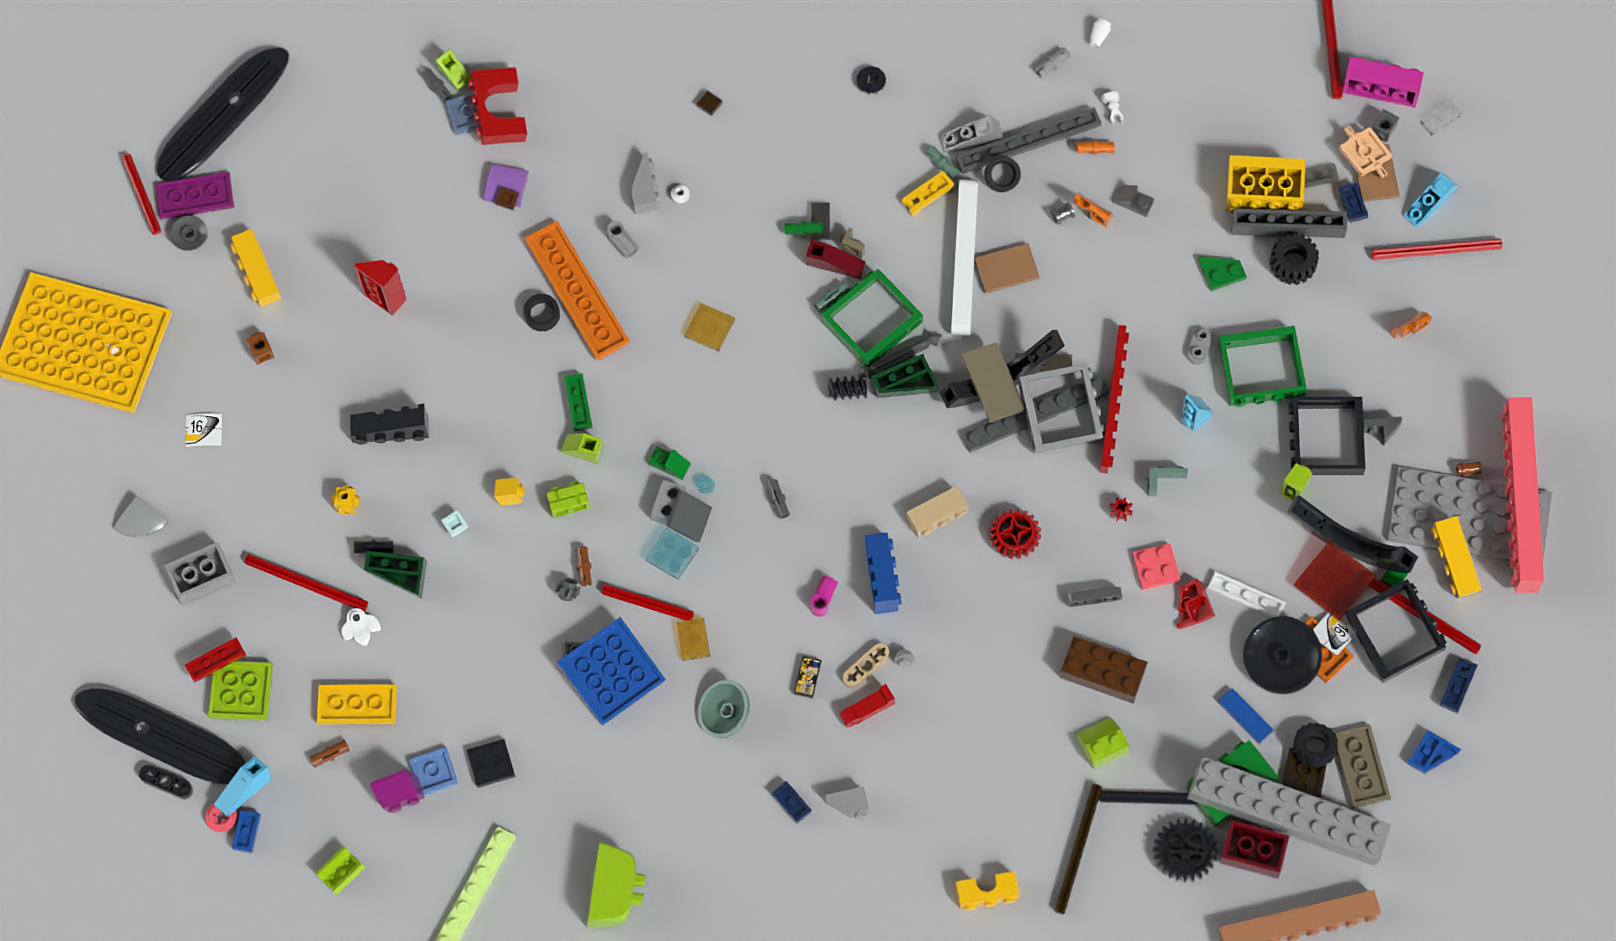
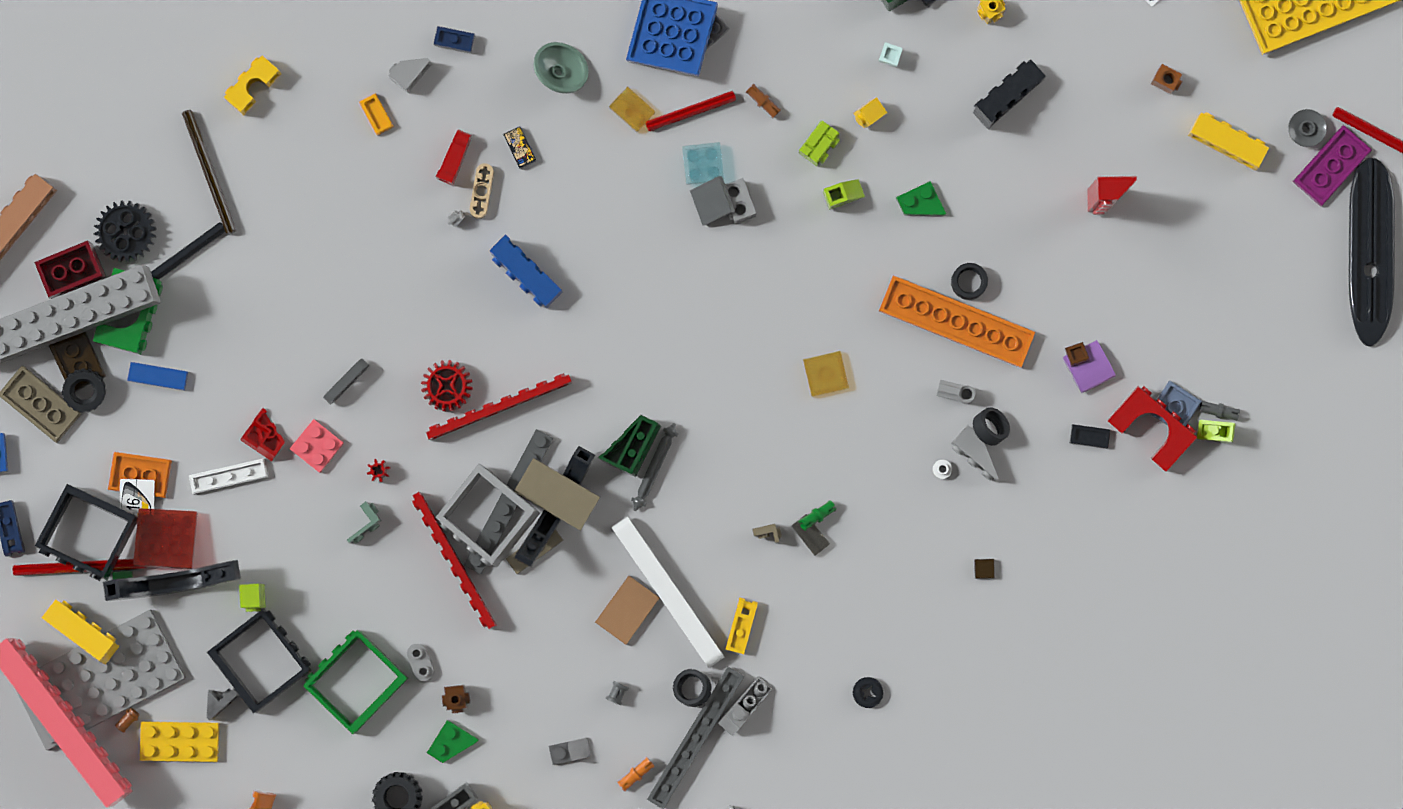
camera: 140 degrees right, 15 degrees up
(526, 399) = (921, 201): none -> green wing
(549, 138) = (1089, 436): none -> black tile
(567, 589) = (759, 71): dark grey gear -> none
(578, 402) = (878, 229): green plate -> none
(608, 191) = (998, 420): none -> black tyre
(670, 463) = (765, 236): green slope -> none
(705, 489) = (722, 245): clear light blue plate -> none
(774, 489) = (656, 271): dark grey pin -> none
(823, 595) = (558, 221): dark pink piece -> none
(831, 297) = (750, 461): sand green pin -> none
(833, 259) = (769, 506): dark red slope -> none
(847, 387) = (672, 405): black piece -> none
(891, 339) = (731, 495): green window -> none
(903, 792) = (376, 114): none -> light orange tile
(937, 512) = (521, 356): tan brick -> none
(943, 162) = (750, 663): sand green pin -> none
(985, 486) = (491, 409): none -> red plate
(1097, 212) = (594, 715): orange slope -> none
(1103, 669) = (293, 326): reddish brown brick -> none
(1103, 742) = (251, 269): lime slope -> none
(1192, 296) = (450, 693): none -> reddish brown brick
(1195, 412) = (376, 596): medium azure slope -> none
(1282, 655) = (161, 443): black dish -> none
(1438, 424) = (179, 741): none -> yellow plate

